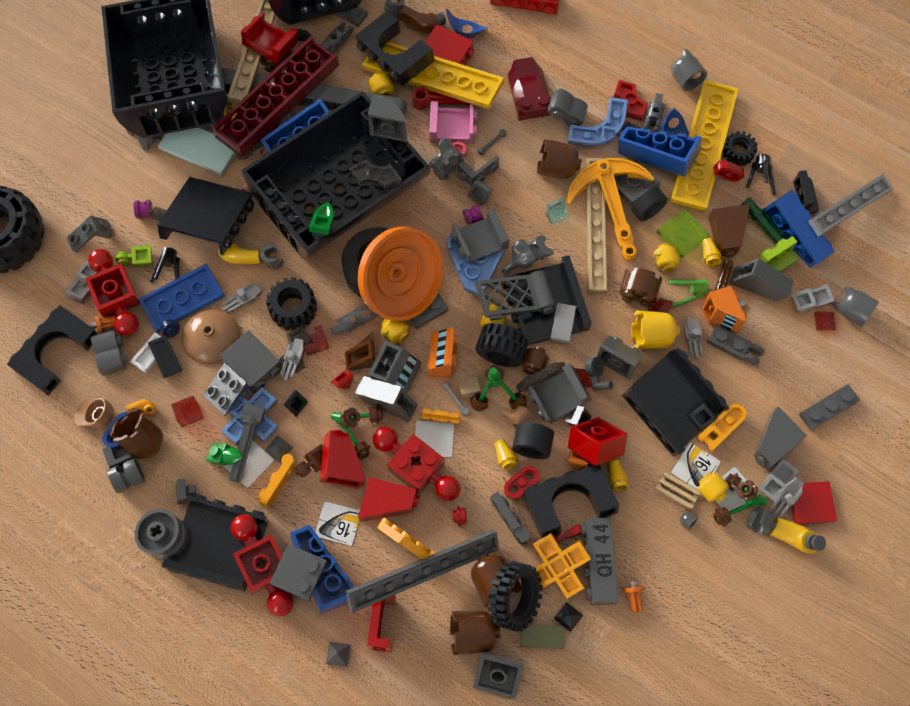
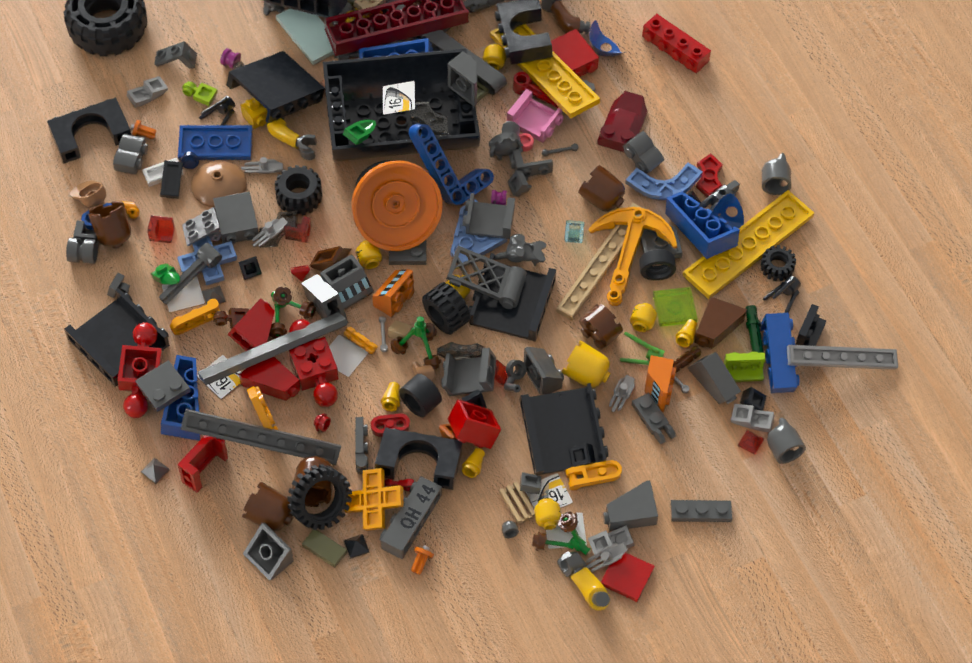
camera: 30 degrees right, 10 degrees down
(113, 291) = (163, 109): red brick -> none
(161, 534) = (79, 306): dark grey wheel -> none
(200, 250) = (254, 113): none -> yellow brick
(335, 169) = (398, 97): none -> sticker
(347, 326) = (332, 227): dark grey hinge -> none
(373, 475) = (271, 348): none -> dark grey tile
(410, 215) = (444, 168): none -> blue beam
(534, 360) = (468, 335): reddish brown head -> none
(563, 323) = (513, 321): light grey slope -> none
(661, 305) = (611, 354): clear red slope -> none
(679, 467) = (530, 483): none -> dark grey plate
(728, 171) = (750, 274): red plate -> none
(802, 281) = (753, 397): none -> black slope

